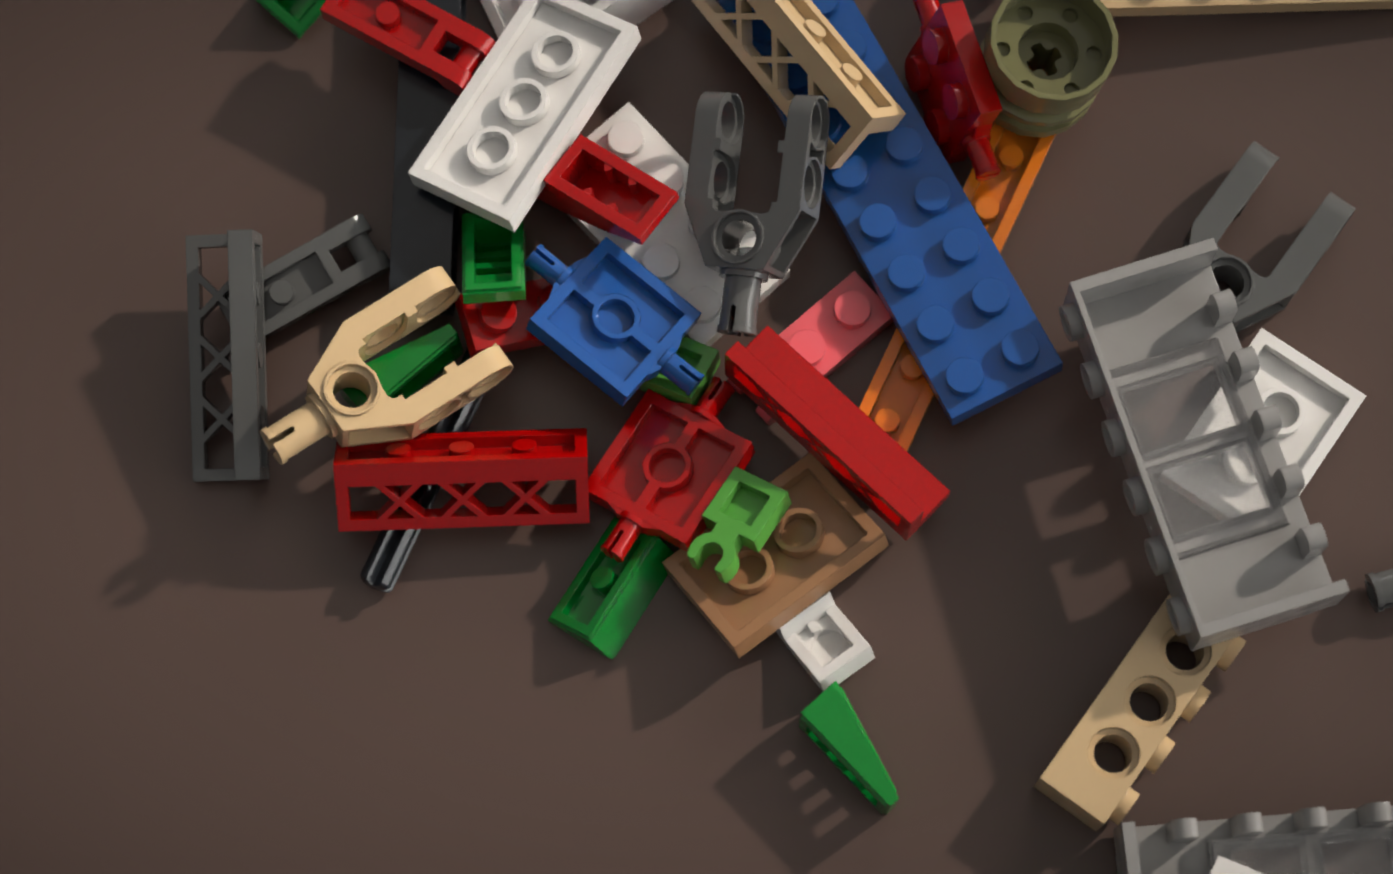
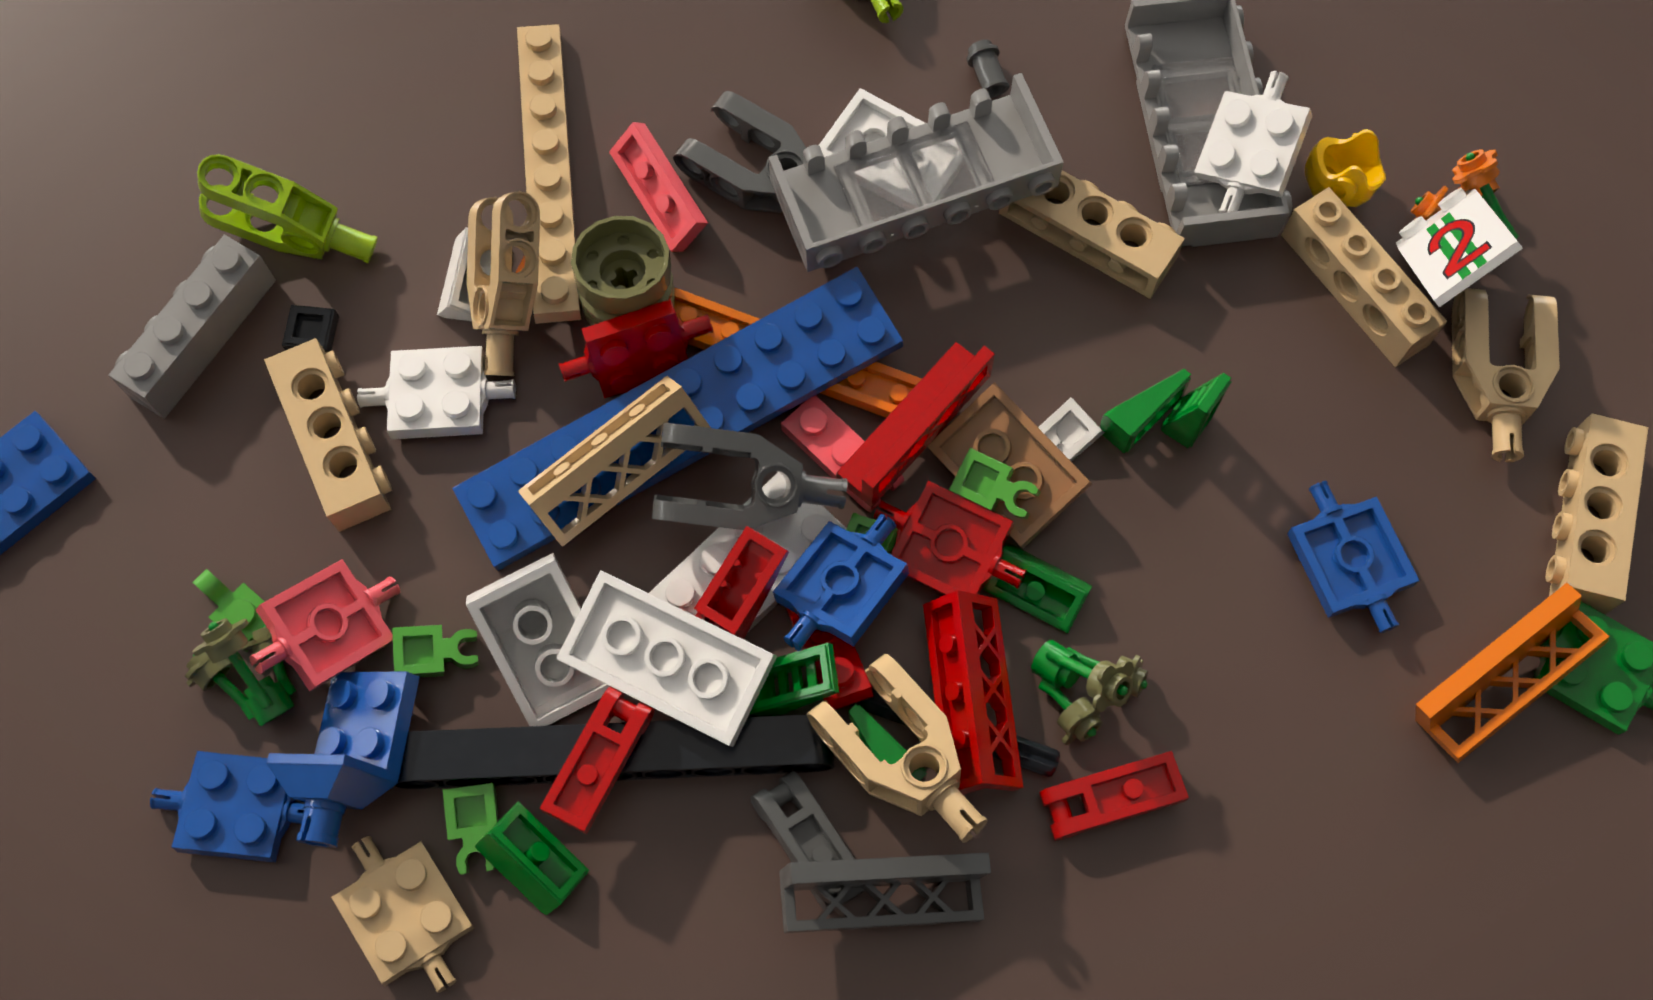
camera: 95 degrees left, 5 degrees down
(327, 654) = (1115, 795): none -> red plate
(444, 629) = (1106, 683): none -> plant
(839, 812) = (1195, 411): none -> green slope
(1209, 123) = (658, 187): none -> coral plate

